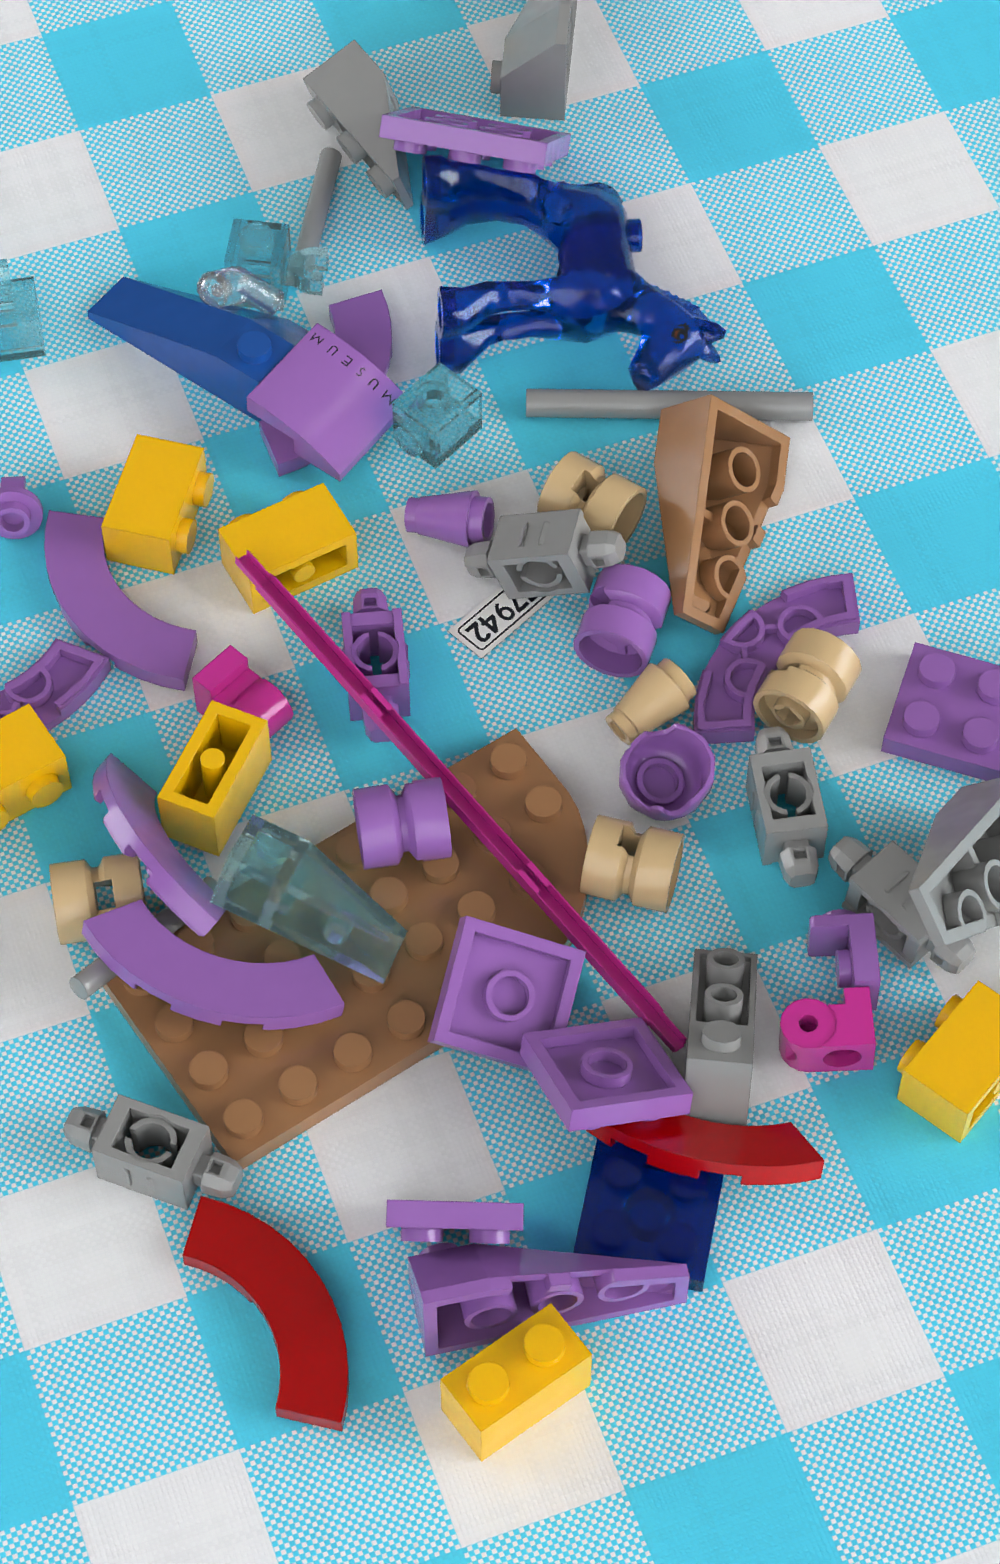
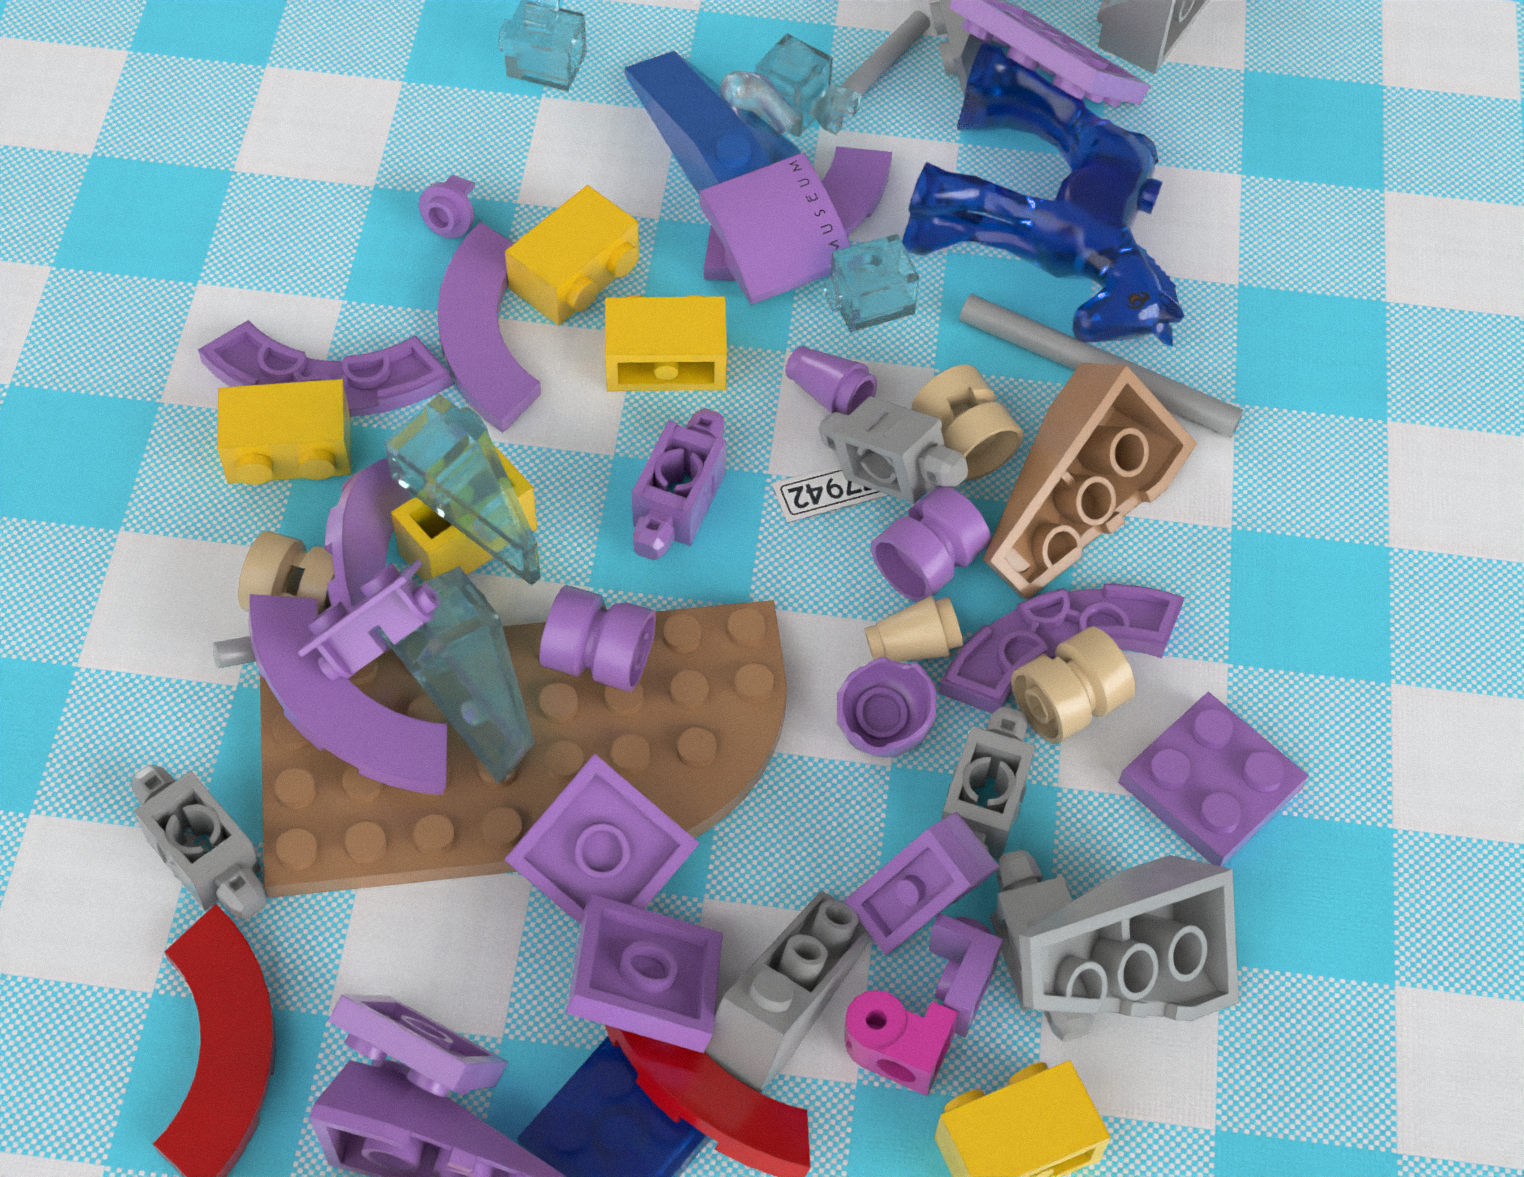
camera: 25 degrees right, 0 degrees up
(211, 737) = (456, 471): none -> clear light blue slope
(222, 868) = (347, 635): none -> medium lavender hinge
(234, 684) = (537, 452): dark pink leg -> none
(463, 803) = (675, 657): dark pink piece -> none
(632, 863) = (809, 785): tan wheel -> none
(782, 900) = (921, 882): none -> medium lavender plate

